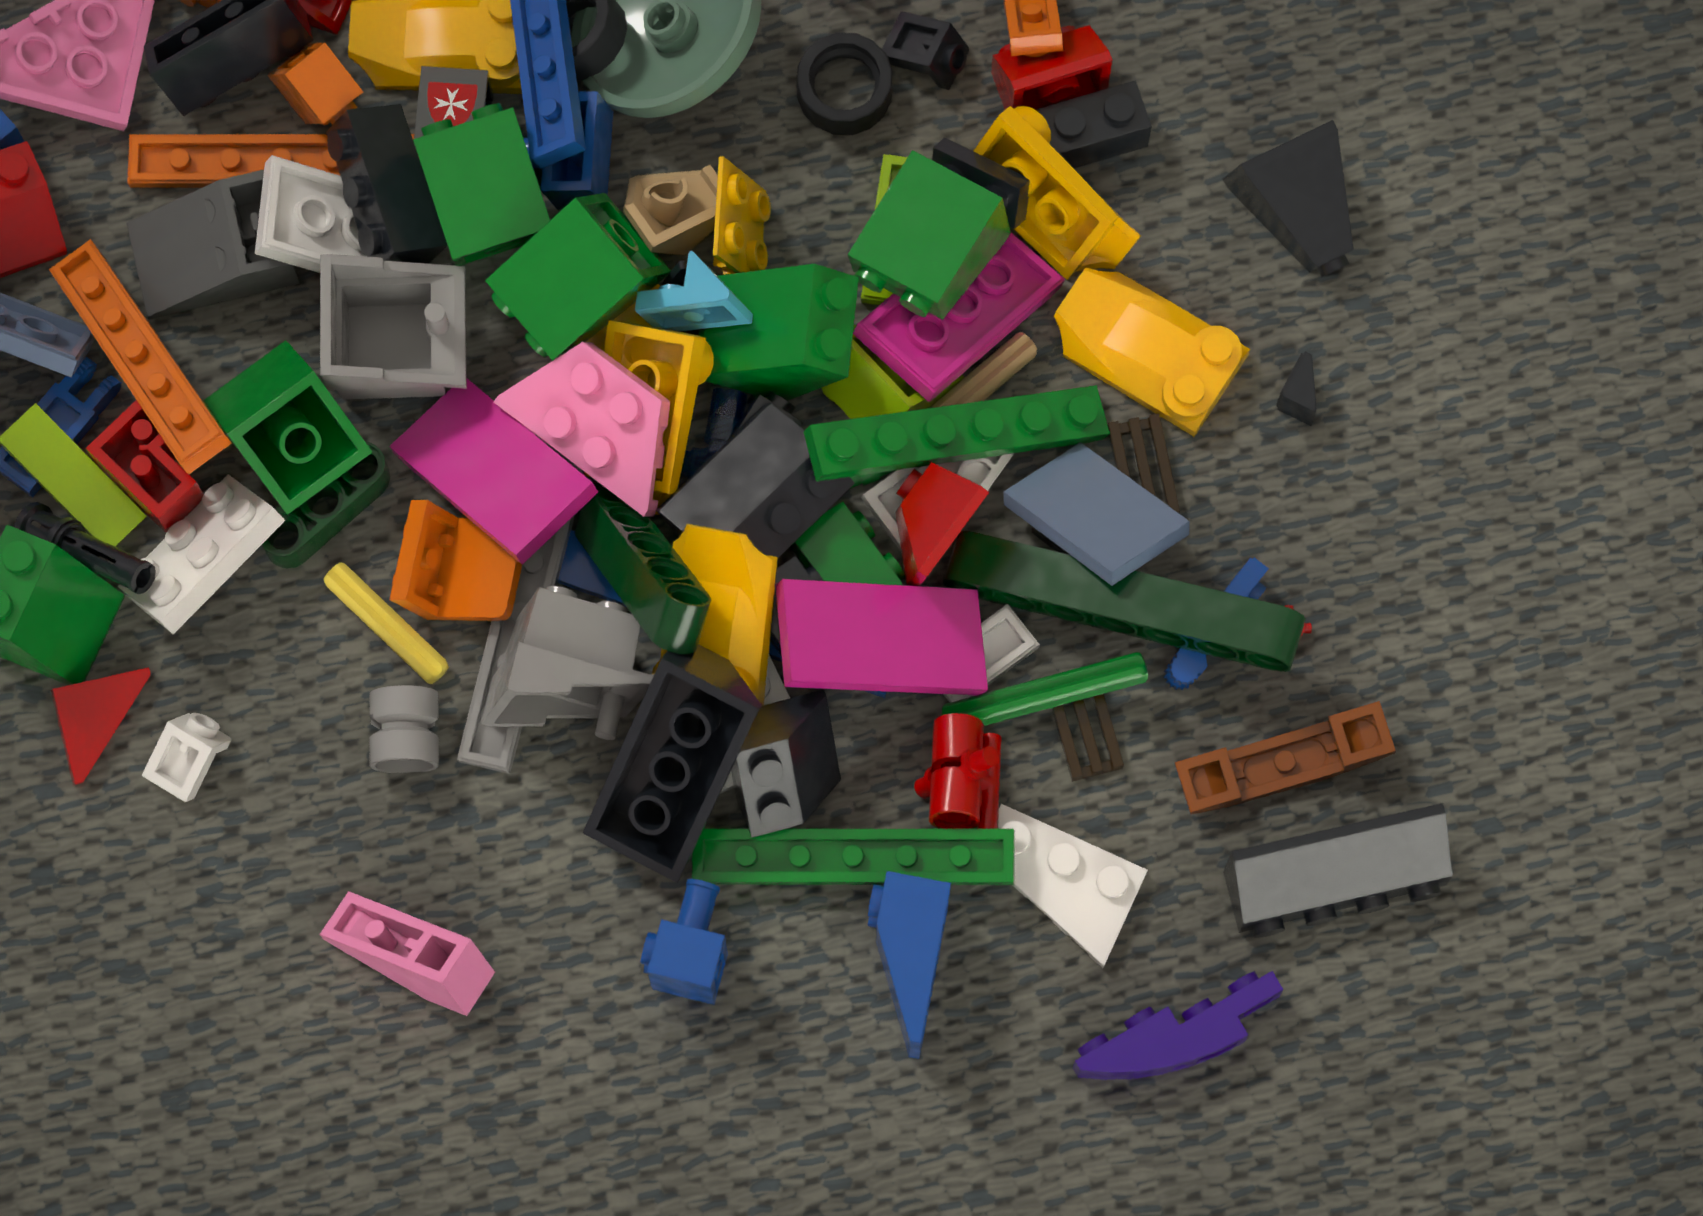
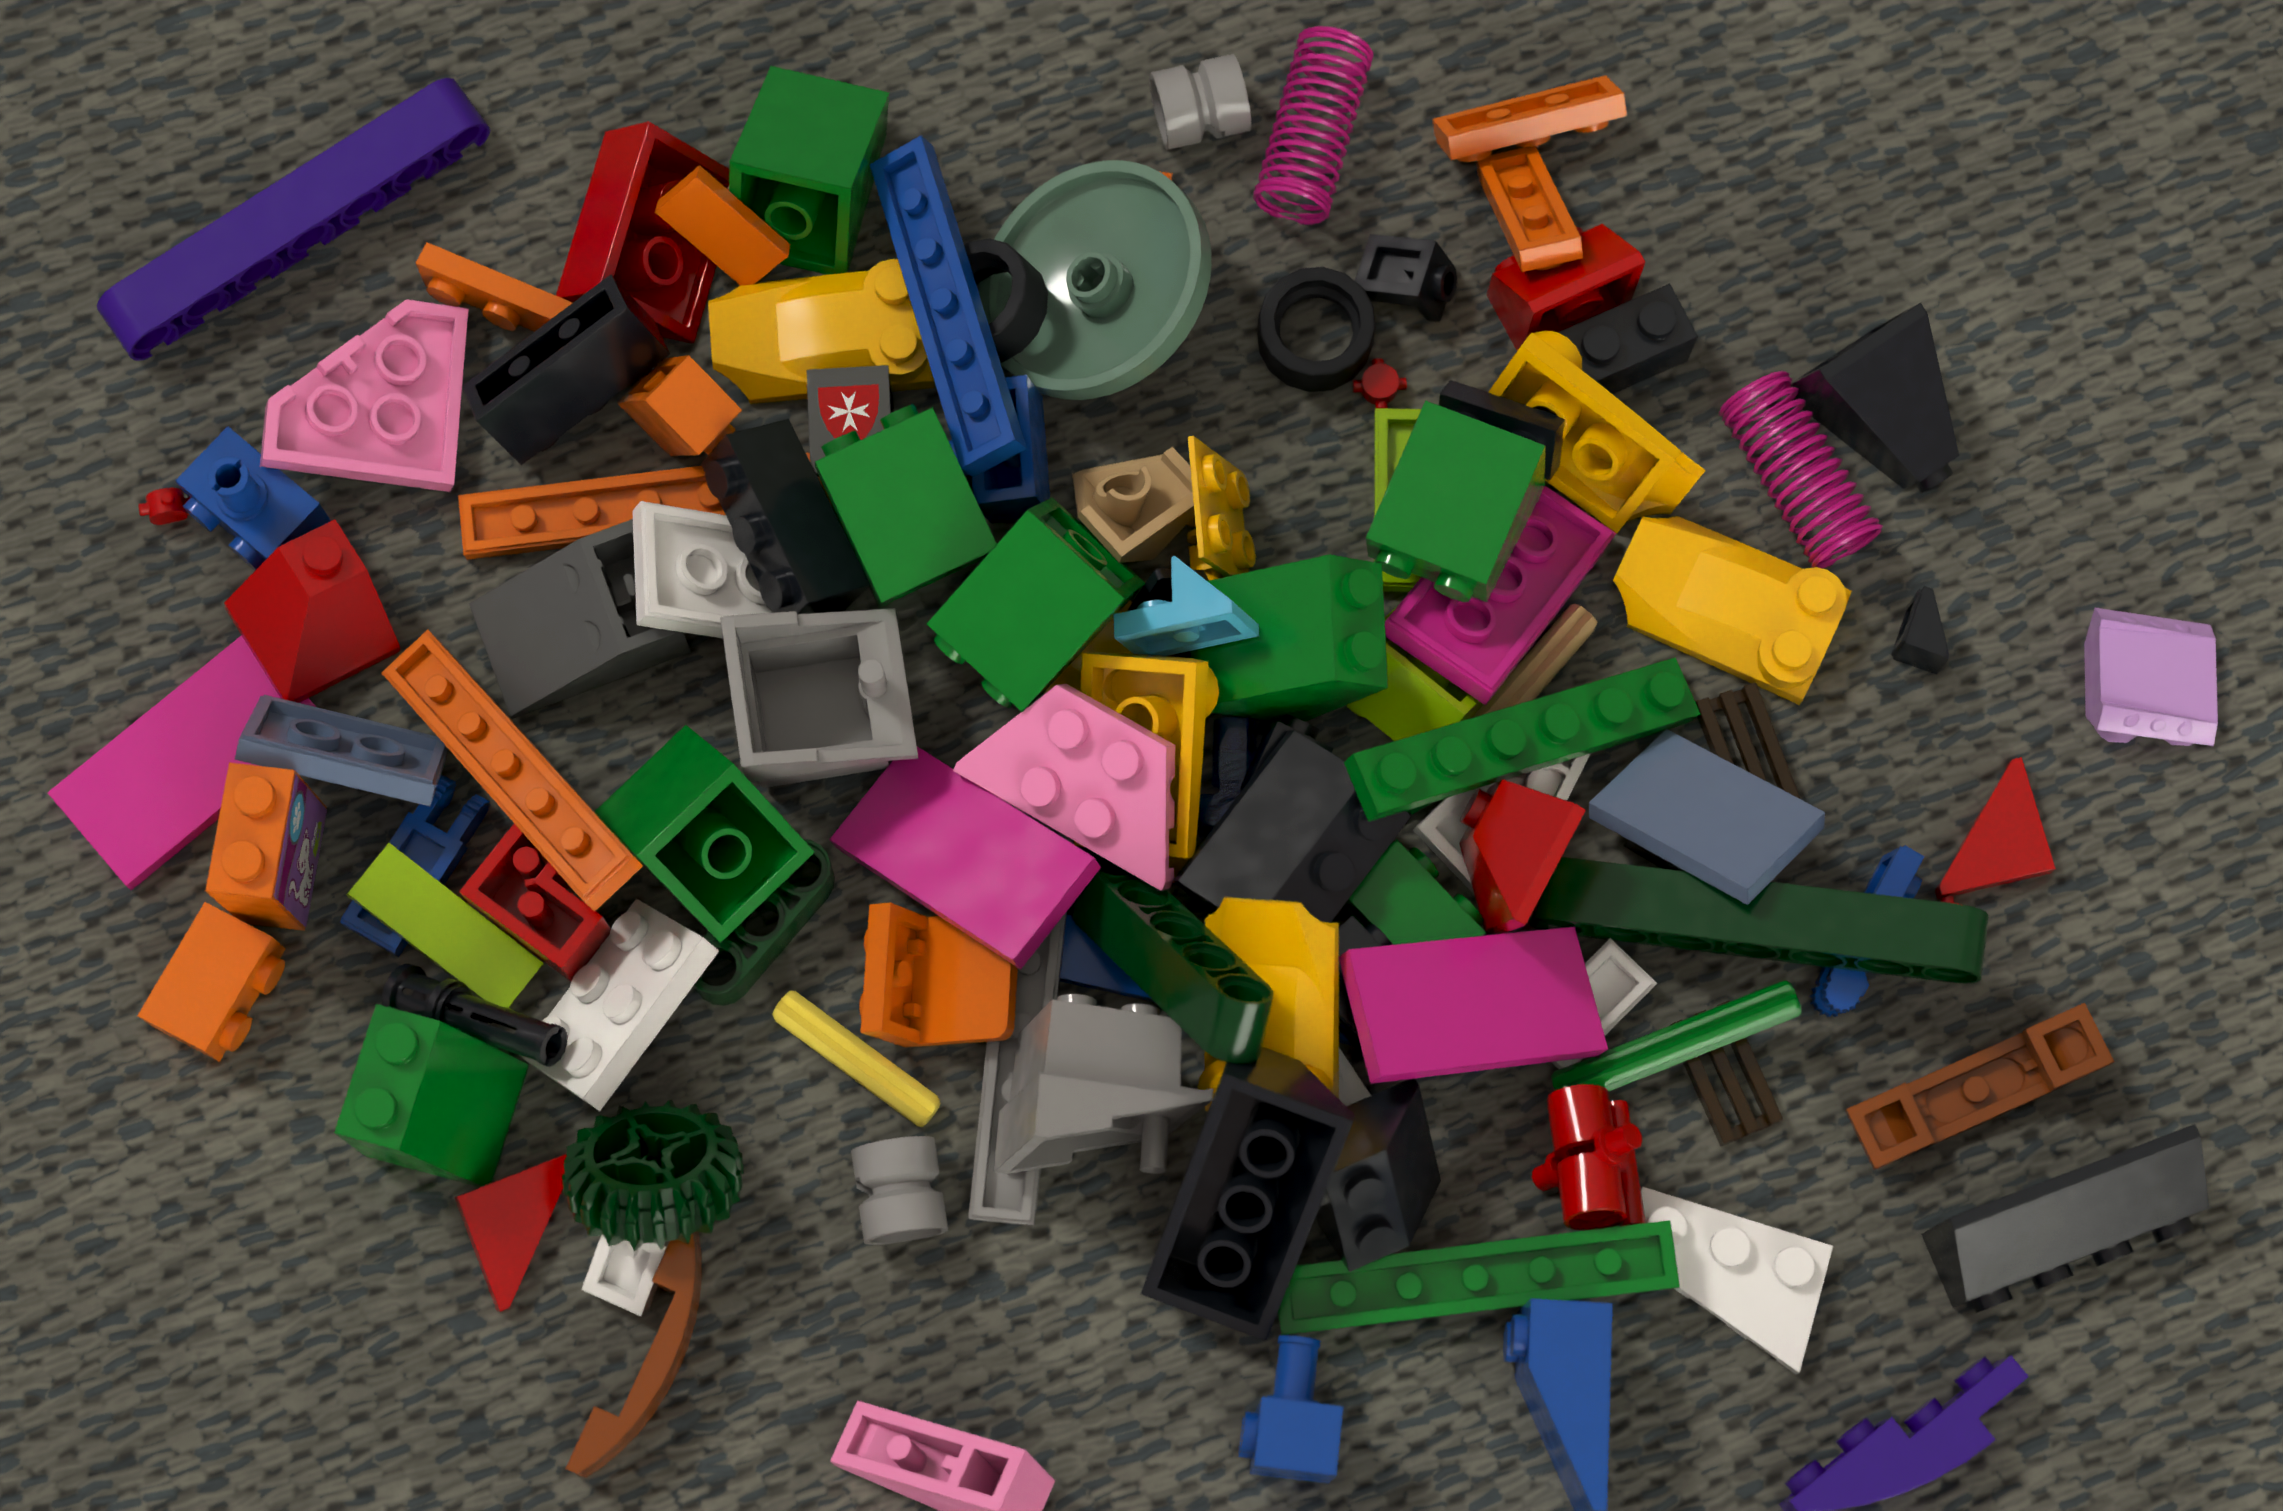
camera: 10 degrees left, 0 degrees up
(145, 889) = (609, 1434): none -> dark orange slope
(209, 690) = (653, 1174): none -> dark green gear
(891, 134) = (1379, 384): none -> red piece
(1269, 298) = (1849, 534): none -> dark pink piece
(1341, 568) = (2004, 841): none -> red tile
(1485, 450) = (2150, 678): none -> lavender slope

